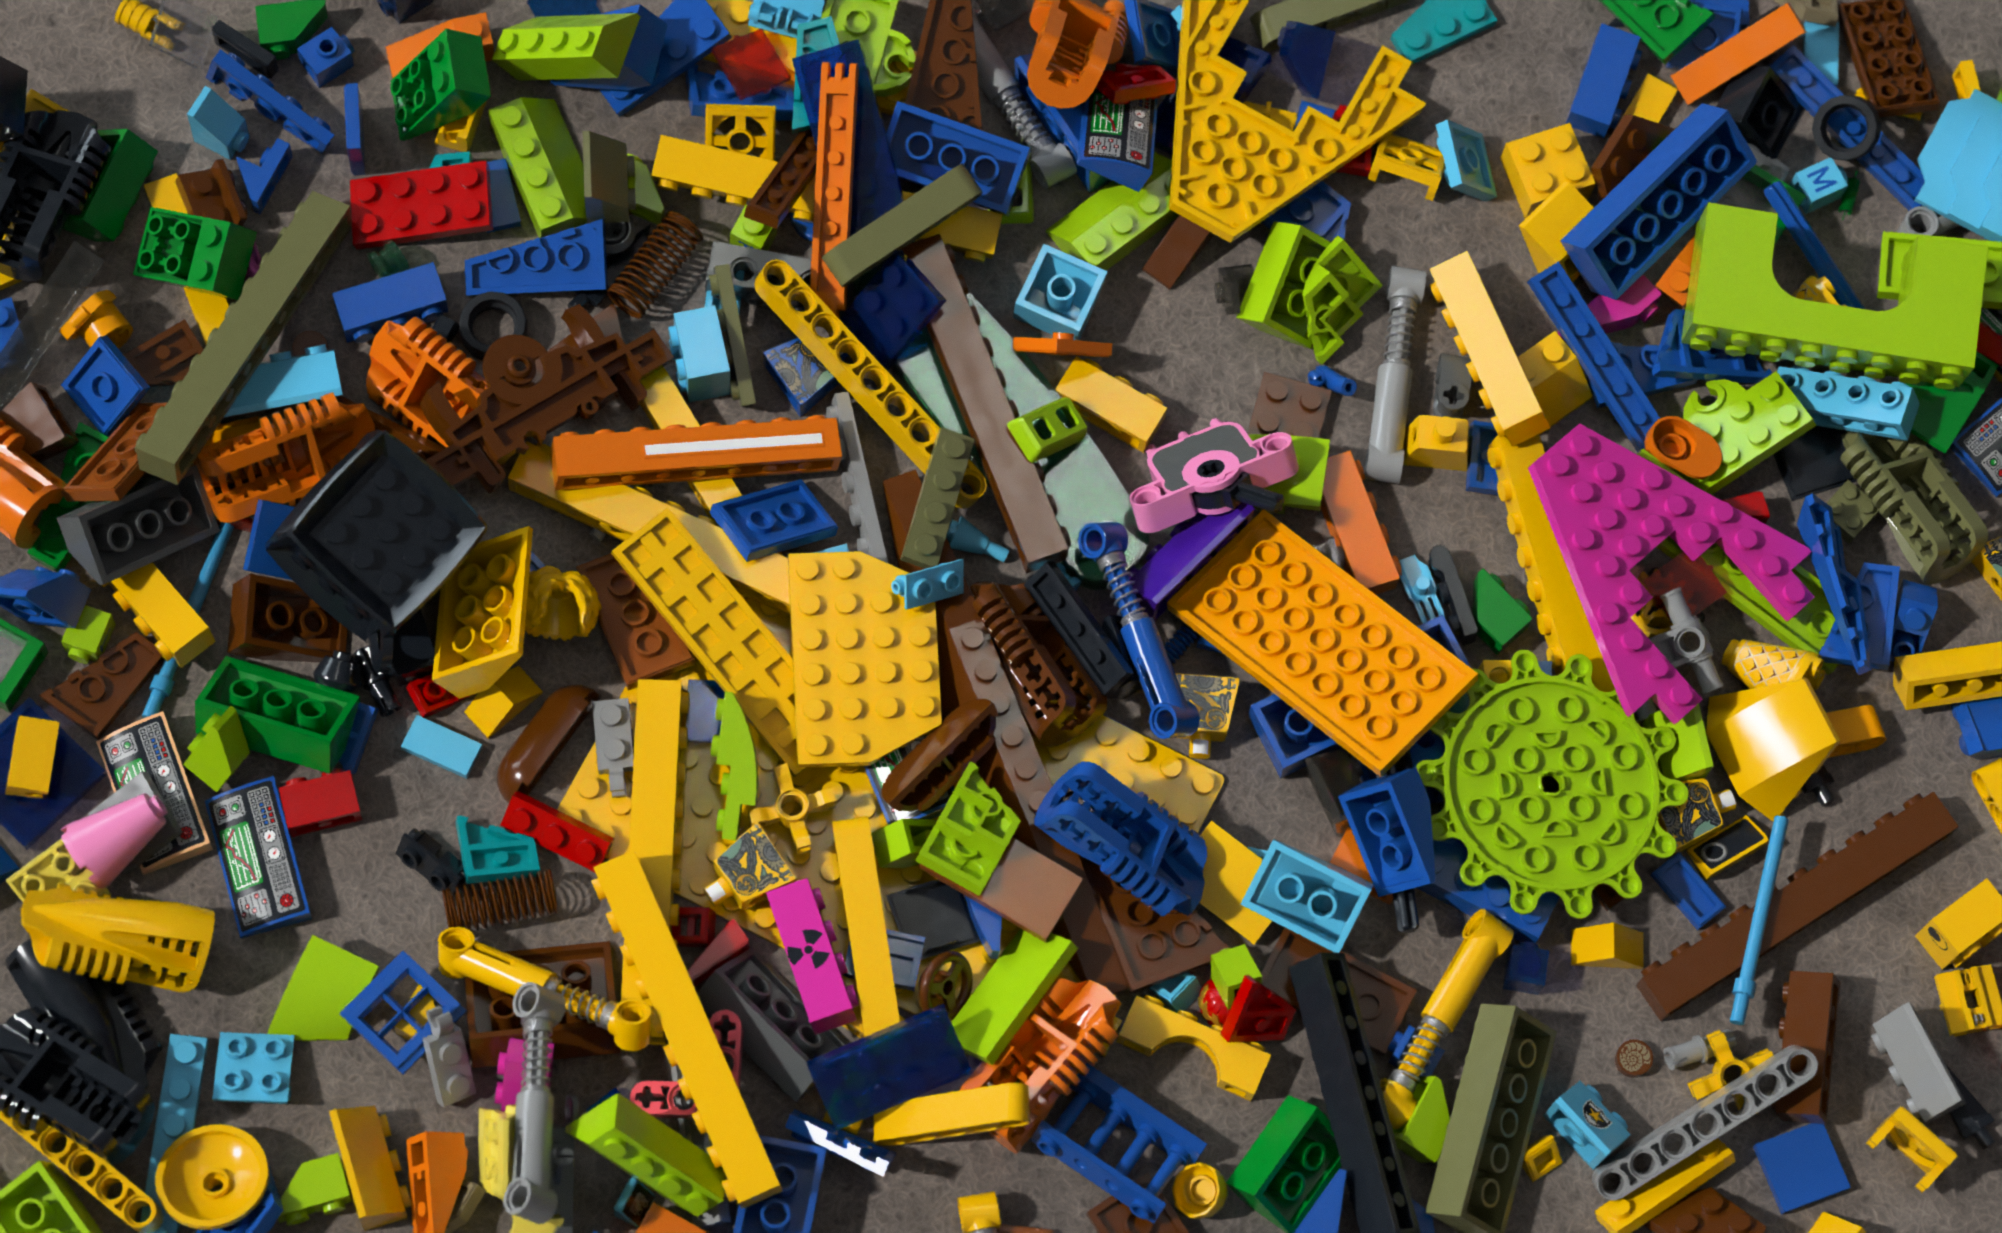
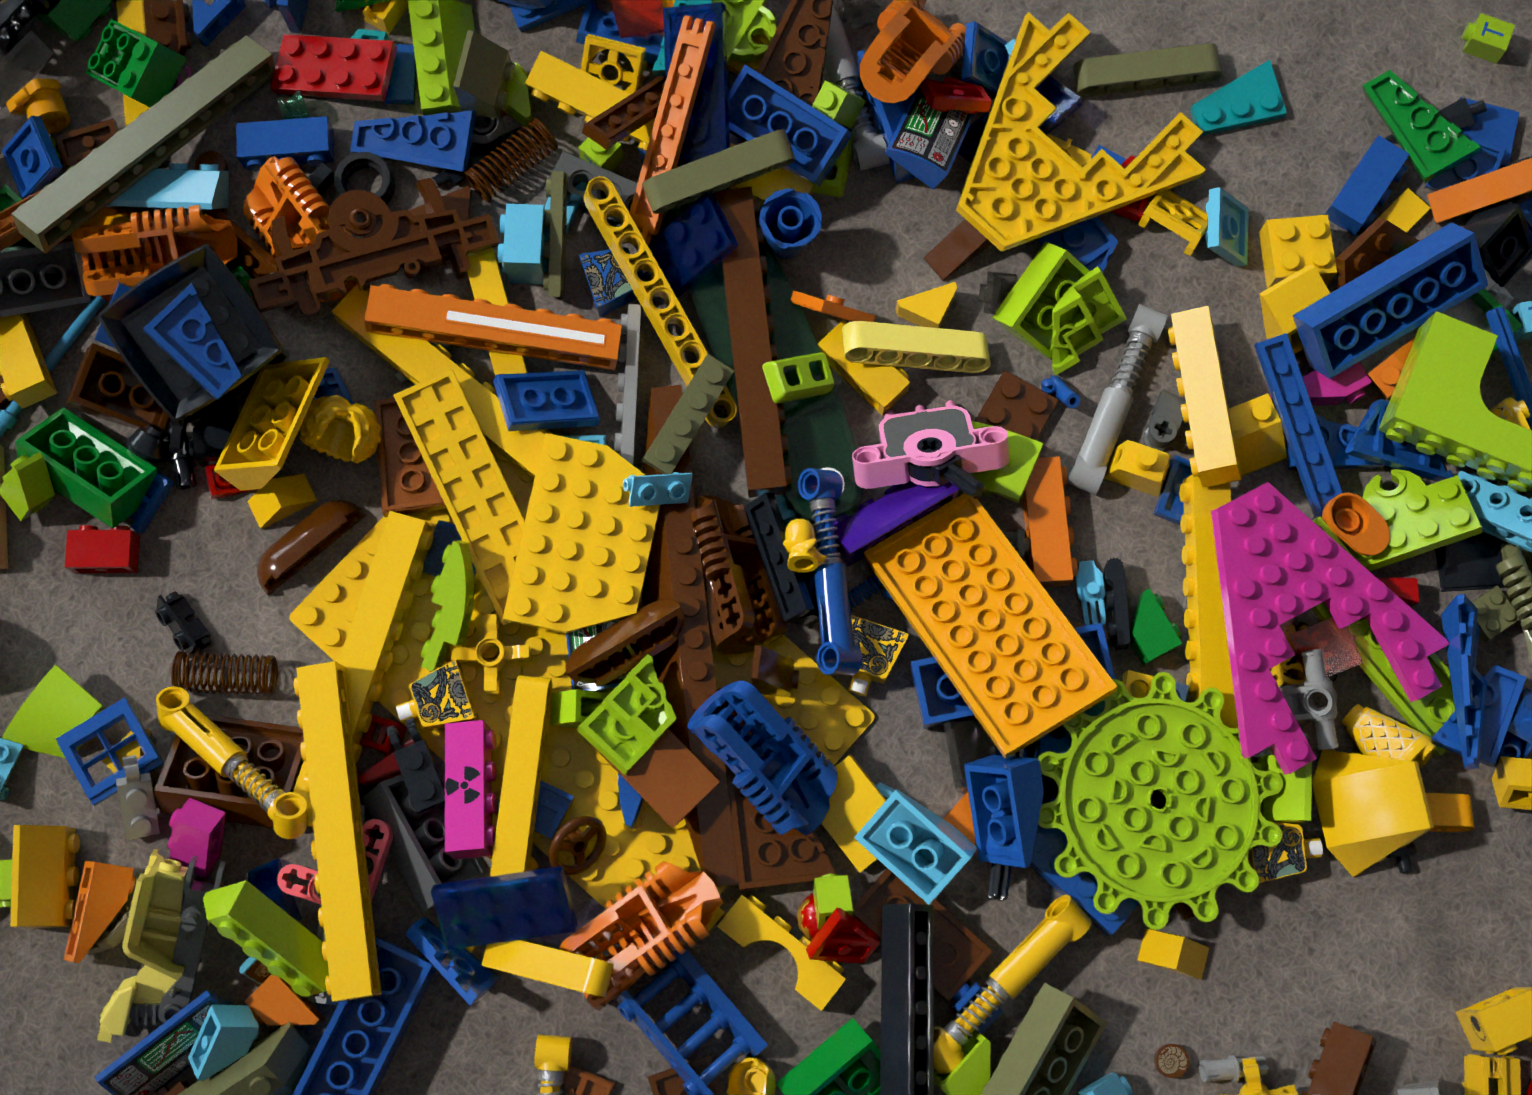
camera: 25 degrees right, 5 degrees up
(257, 858) = (40, 586): slope -> none
(398, 540) = (192, 341): none -> blue wing
(441, 746) = (219, 527): medium azure tile -> none
(494, 852) = (233, 629): teal wing -> none
(530, 1190) = (146, 950): light grey piece -> none
(556, 831) = (291, 623): red plate -> none
(614, 742) = (357, 558): light grey plate -> none
(749, 948) = (418, 769): none -> black hinge
(936, 914) = (587, 778): black piece -> none
(968, 538) = (710, 454): medium azure cone -> none
(993, 263) = (790, 222): none -> blue cone
(1007, 120) = (838, 104): none -> lime brick
(1010, 993) = (628, 868): lime tile -> none
(1059, 293) = (844, 262): medium azure slope -> none
(1103, 608) = (800, 546): none -> yellow animal
(1107, 749) = (773, 673): none -> reddish brown slope
(1117, 219) = (911, 212): lime slope -> none
(1163, 323) = (928, 307): none -> yellow slope
(1163, 368) = (915, 347): none -> light yellow beam
(1178, 992) = (783, 898): medium azure slope -> none
(1306, 55) = (1111, 105): clear blue slope -> none
(1526, 968) = (1095, 955): clear blue brick -> none
(1688, 890) = (1260, 921): blue tile -> none
(1727, 847) = (1305, 889): slope -> none
(1745, 986) = (1287, 1026): dark azure bar -> none
(1798, 904) = (1356, 959): reddish brown brick -> none

